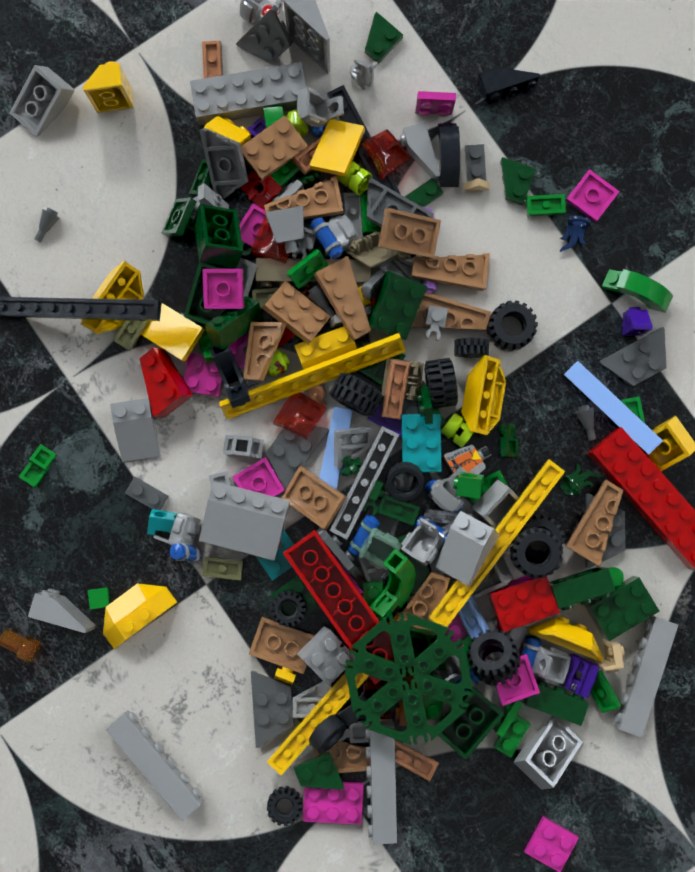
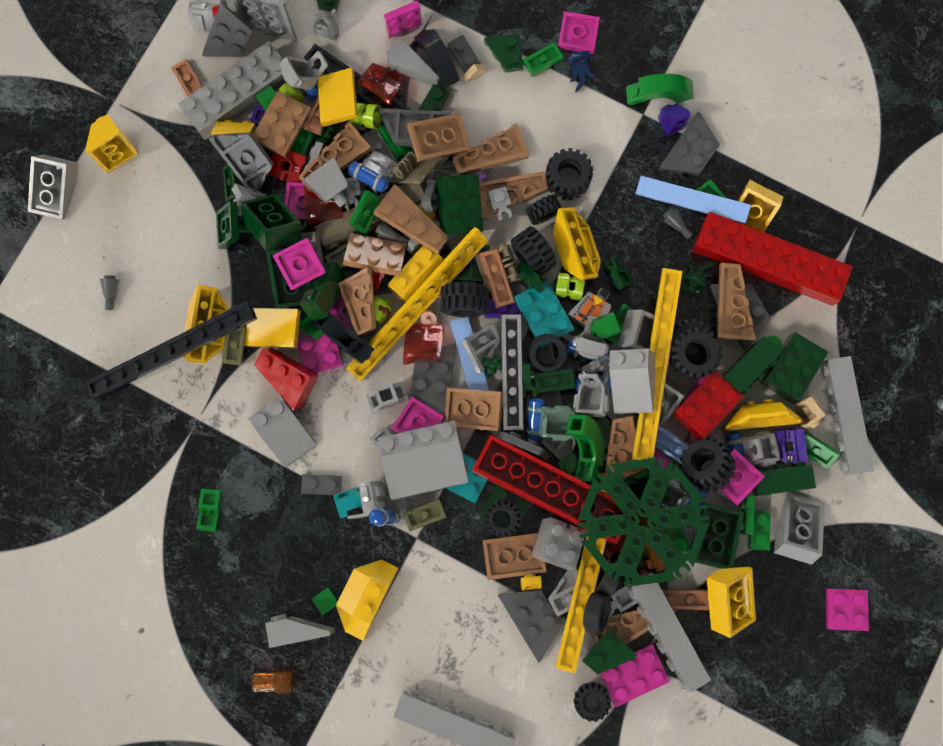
camera: 25 degrees left, 5 degrees down
(451, 784) = (731, 600): none -> yellow slope

